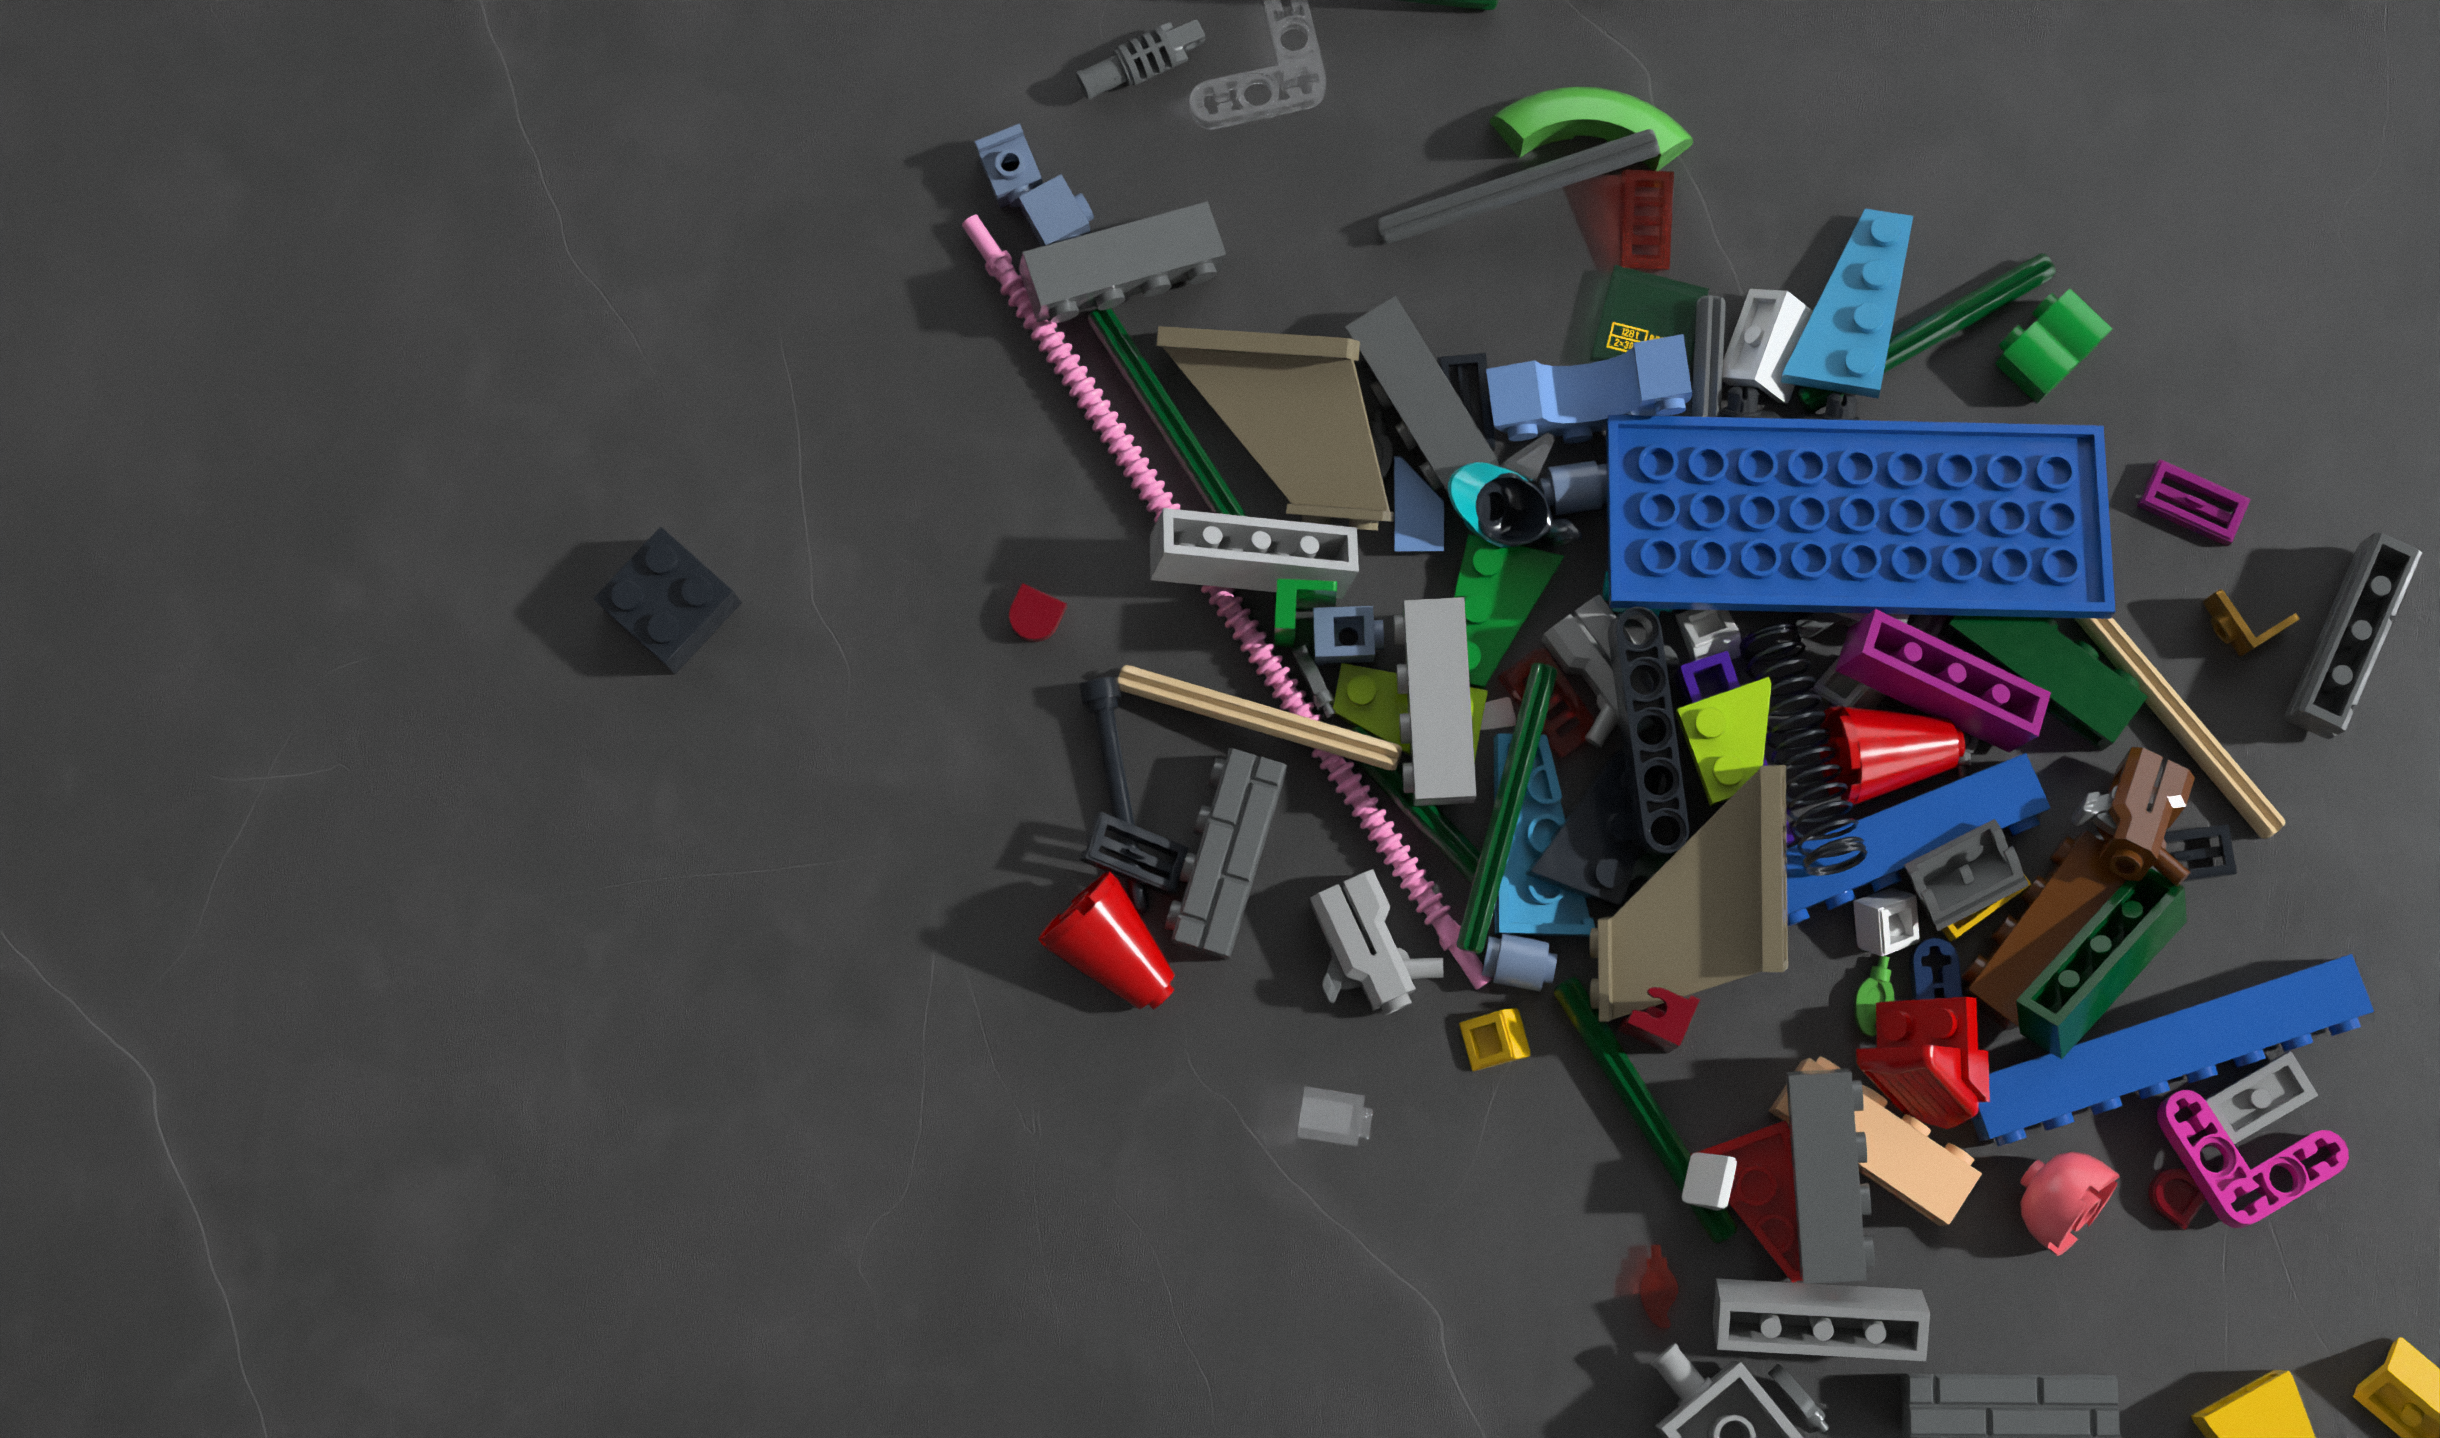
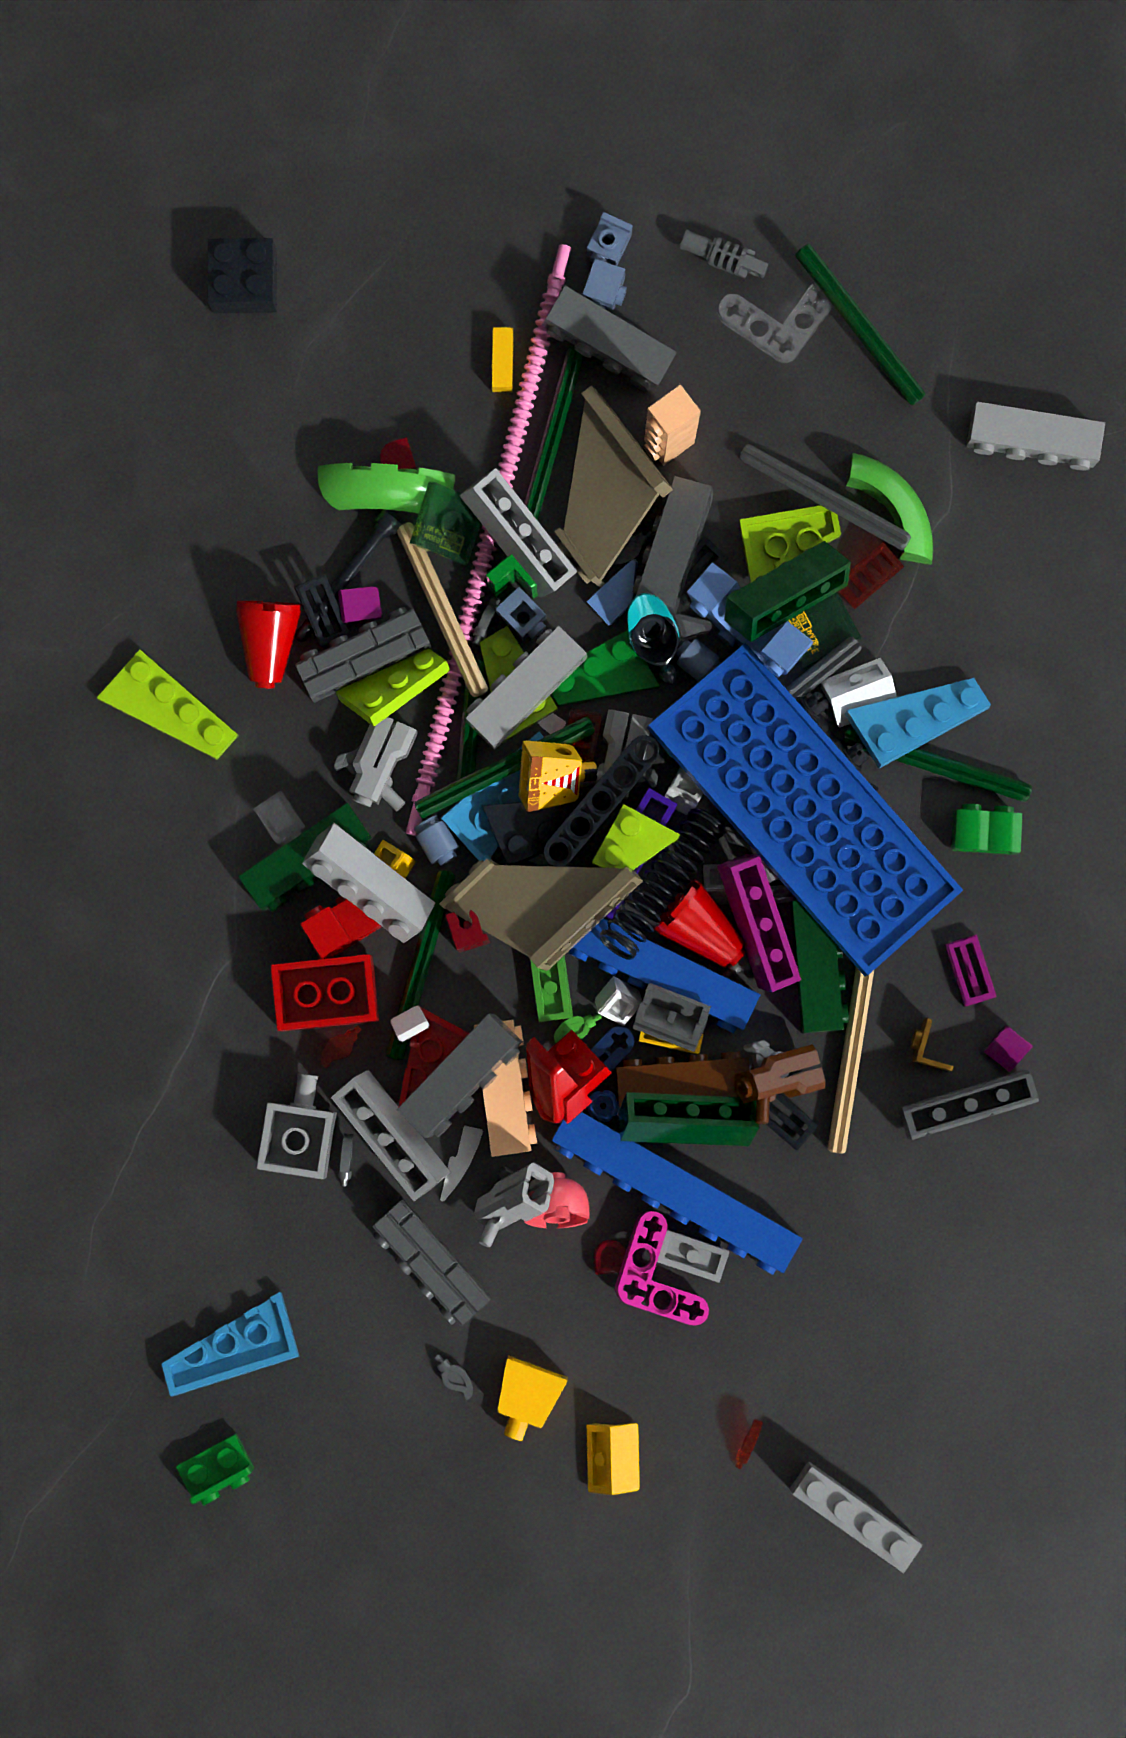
camera: 45 degrees right, 5 degrees up
(1033, 400) = (502, 360): none -> yellow piece
(1060, 658) = (378, 486): none -> bright green brick
(1072, 1133) = (160, 701): none -> lime wing
(1166, 626) = (446, 525): none -> clear green tile
(1167, 805) = (360, 605): none -> magenta slope
(1293, 273) = (671, 426): none -> light nougat brick
(1297, 852) = (392, 687): none -> lime wing
(1404, 1129) = (283, 870): none -> dark green brick
(1506, 1080) = (368, 883): none -> light grey brick
(1520, 272) = (784, 535): none -> lime wing
(1522, 1157) = (337, 927): none -> red brick
(1566, 762) = (551, 774): none -> yellow torso
(1586, 1246) = (325, 992): none -> red brick
(1591, 318) = (787, 591): none -> dark green brick
(1812, 988) = (552, 992): none -> bright green plate
(1916, 1270) = (459, 1164): none -> white sticker
(2005, 1040) = (611, 1109): none -> blue plate
(2024, 1242) = (510, 1200): none -> light grey piece
(2320, 538) = (1008, 1048): none -> magenta slope

